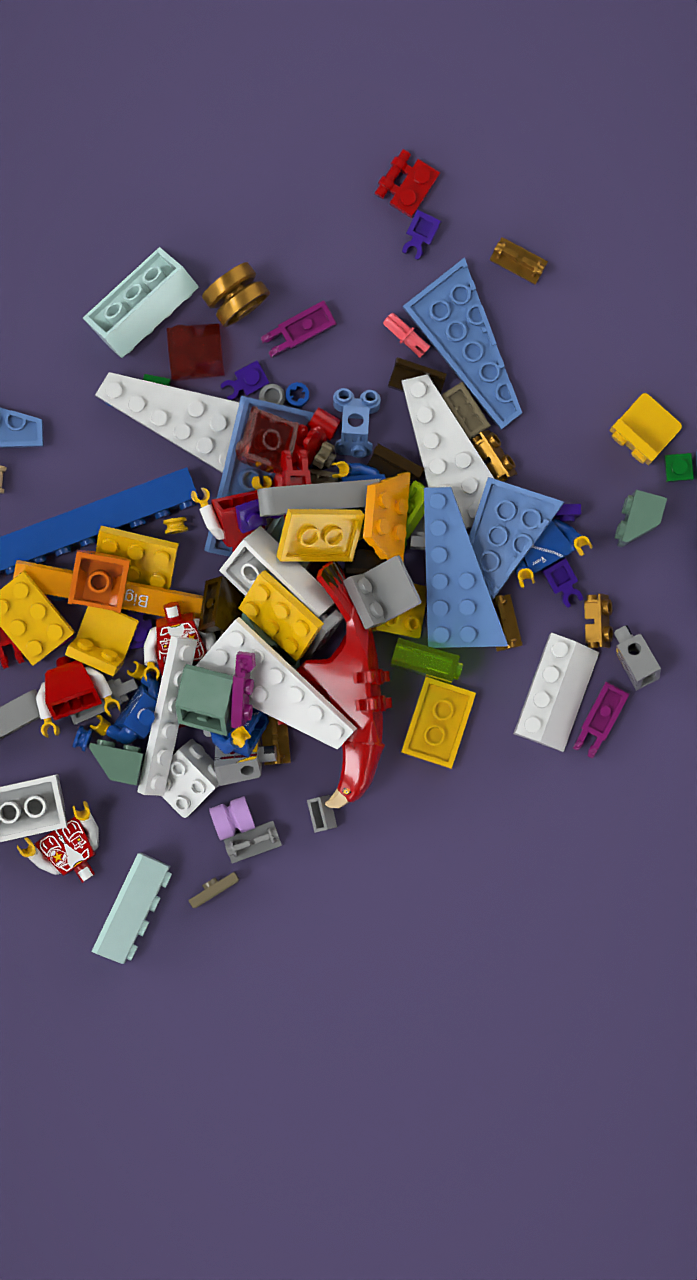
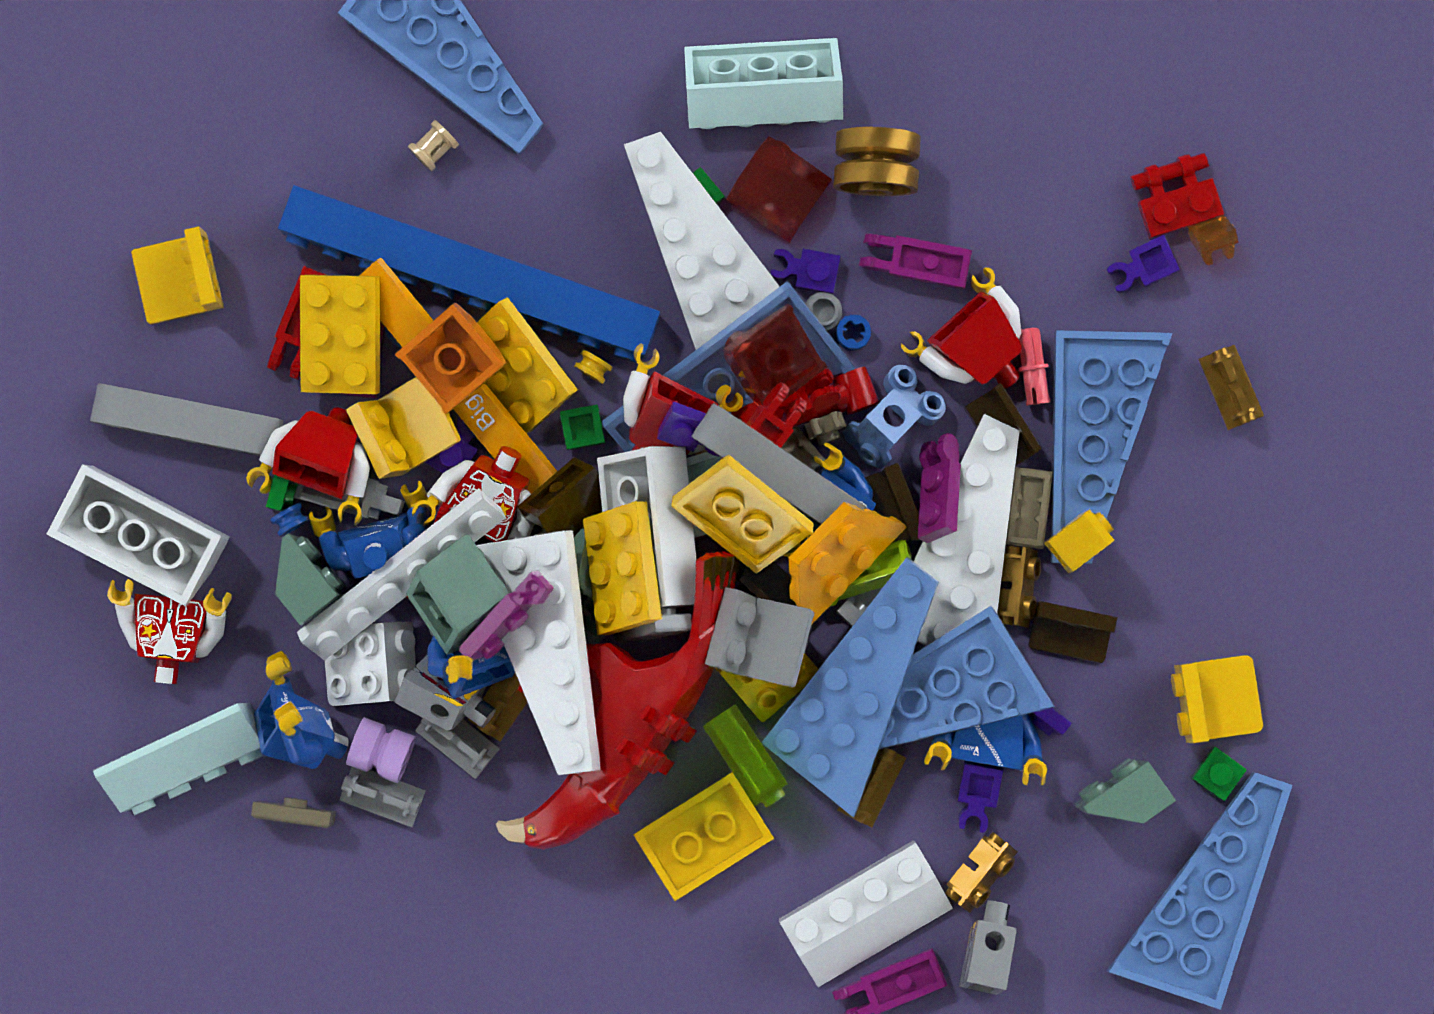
camera: 45 degrees right, 0 degrees up
(67, 728) = (281, 494): none -> green plate
(174, 843) = (291, 725): none -> blue torso
(196, 562) = (582, 427): none -> green plate
(271, 781) = (462, 745): none -> light grey hinge
(327, 814) = (482, 833): light grey piece -> none
(365, 345) = (976, 339): none -> red torso
(410, 438) = (939, 488): none -> magenta hinge
(444, 188) = (1213, 236): none -> clear orange tile
(506, 404) = (1080, 540): none -> yellow slope
(541, 457) = (1071, 631): none -> dark brown panel

